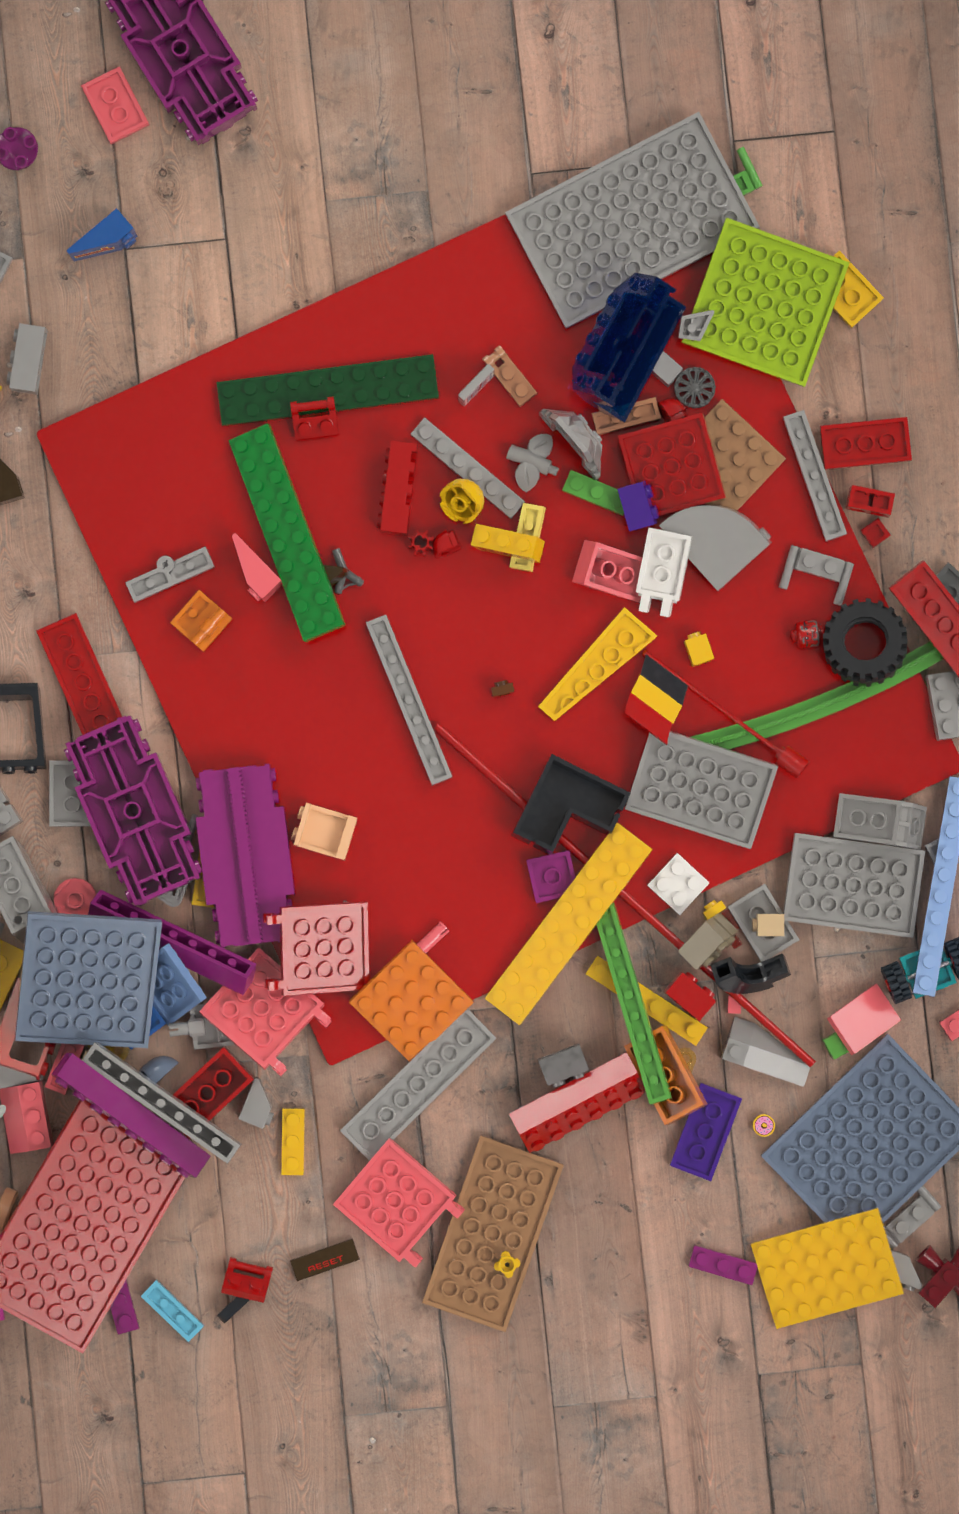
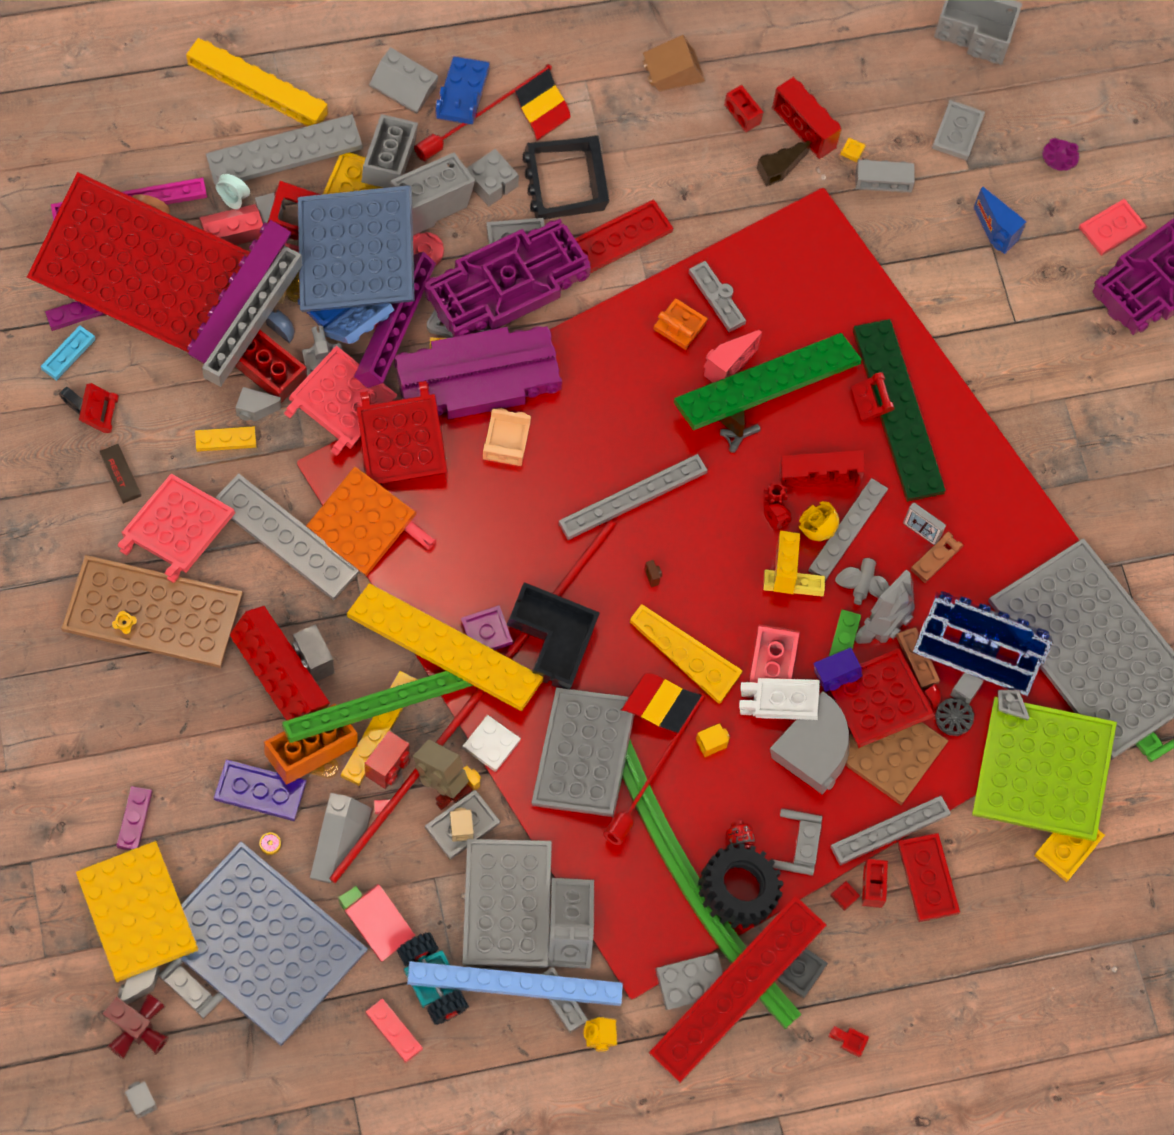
camera: 75 degrees right, 20 degrees down
(749, 978) = (408, 810): black arch -> none

